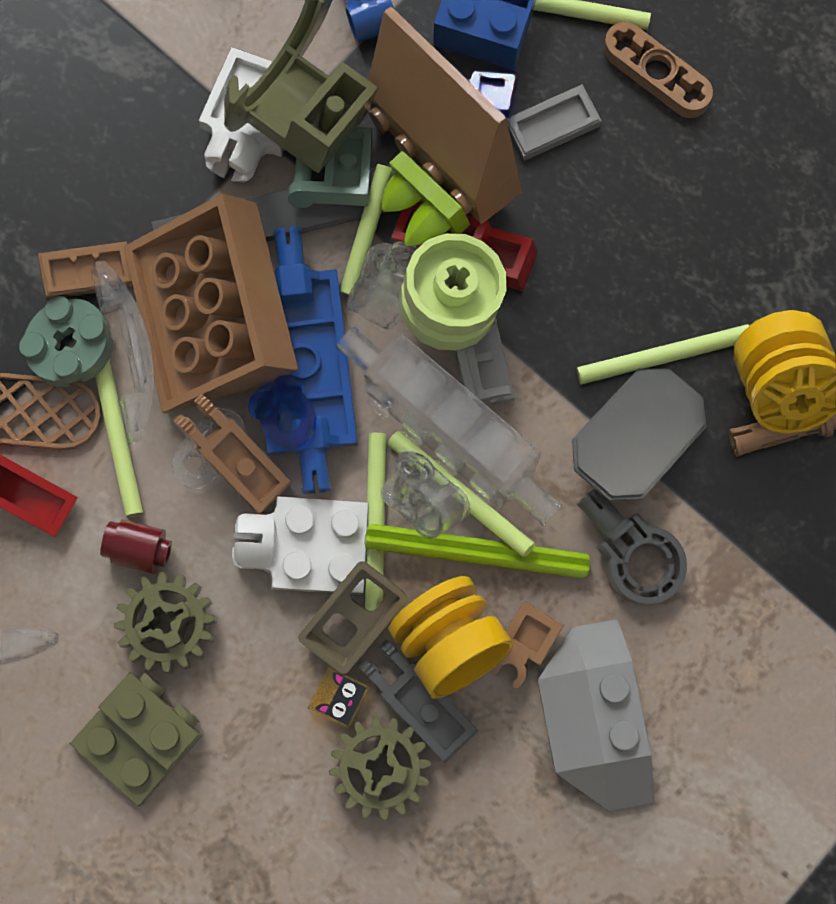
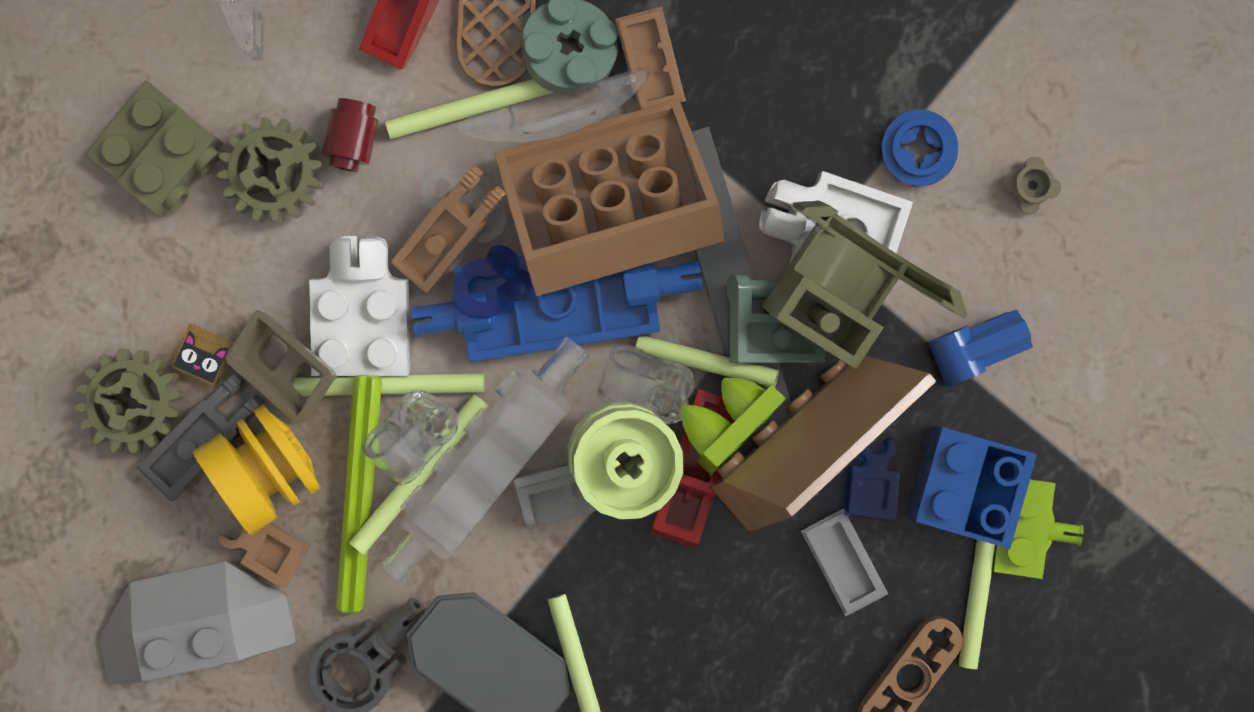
camera: 85 degrees right, 10 degrees up
(172, 29) = (936, 134): none -> blue gear

